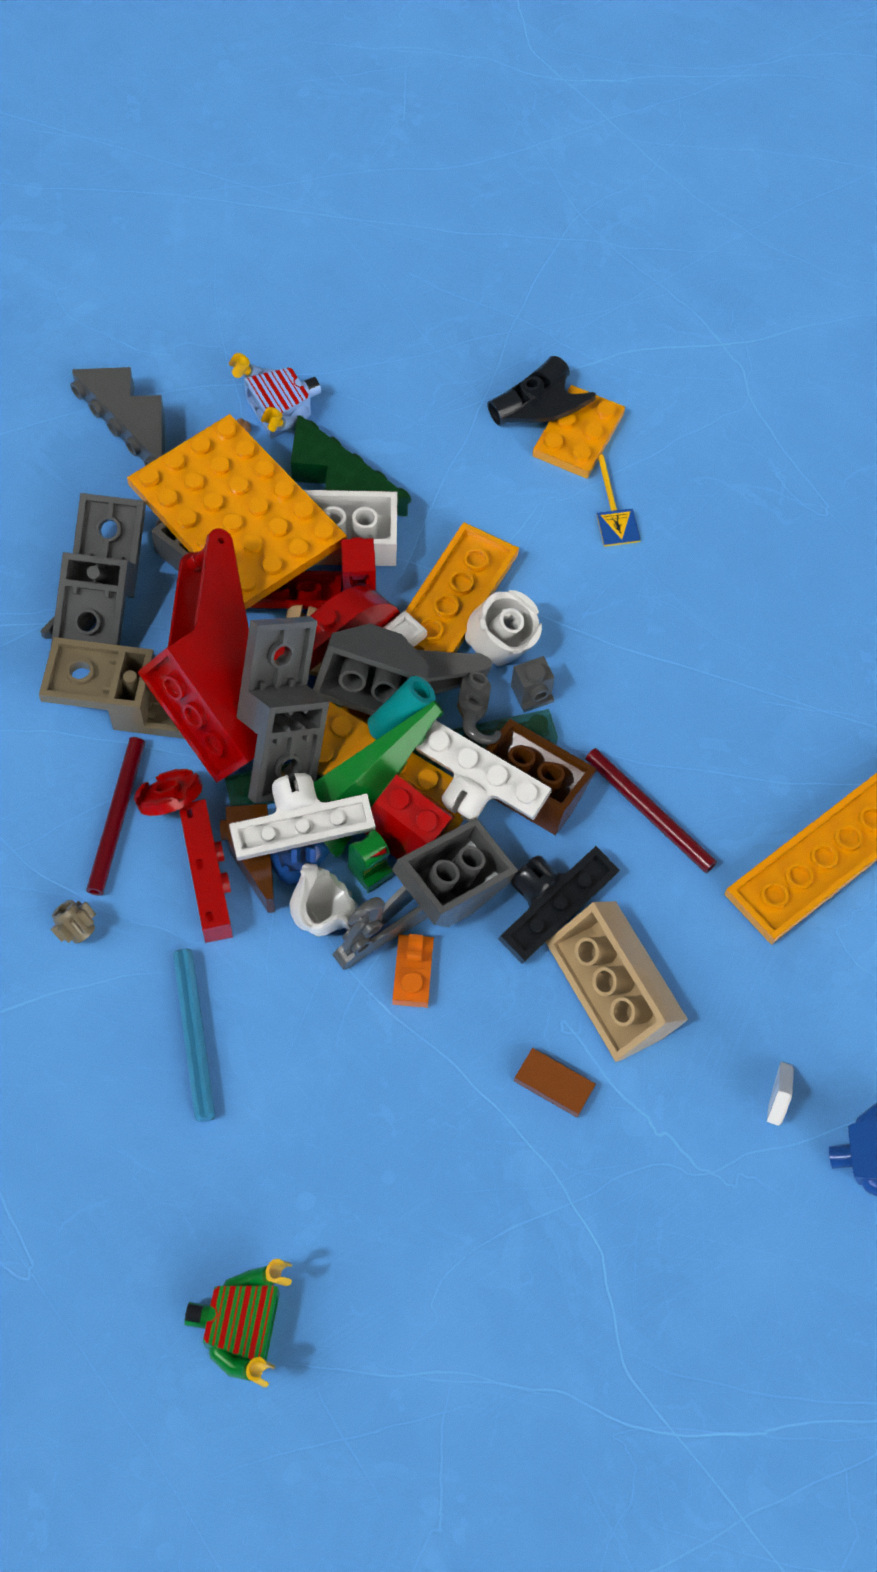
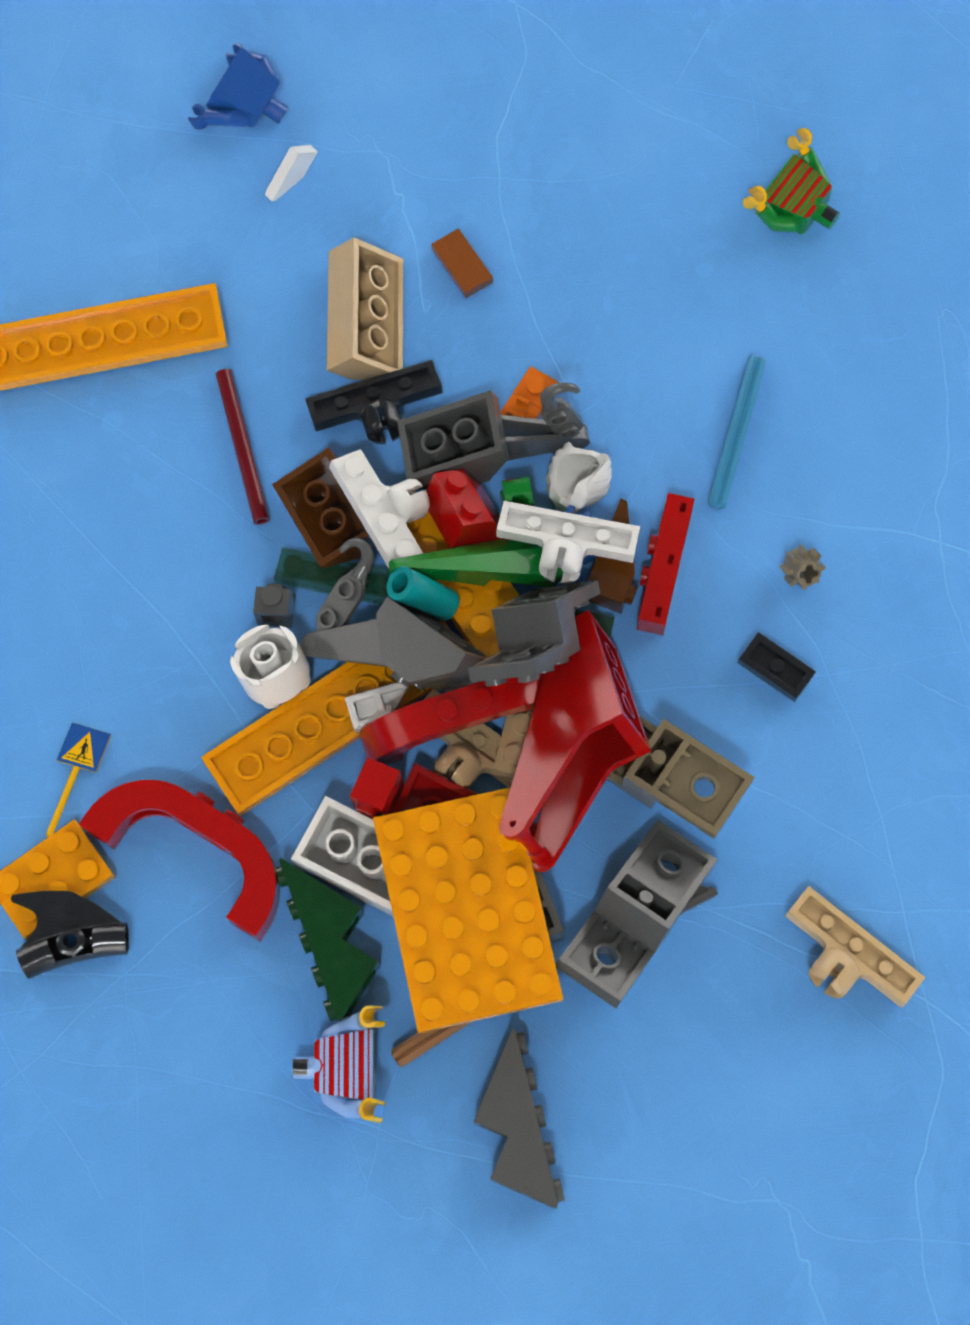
camera: 145 degrees left, 10 degrees up
(63, 827) = (776, 667): none -> black plate
(115, 816) = (723, 659): dark red piece -> none
(170, 792) = (667, 648): red tile -> none
(484, 507) = (133, 801): none -> red arch

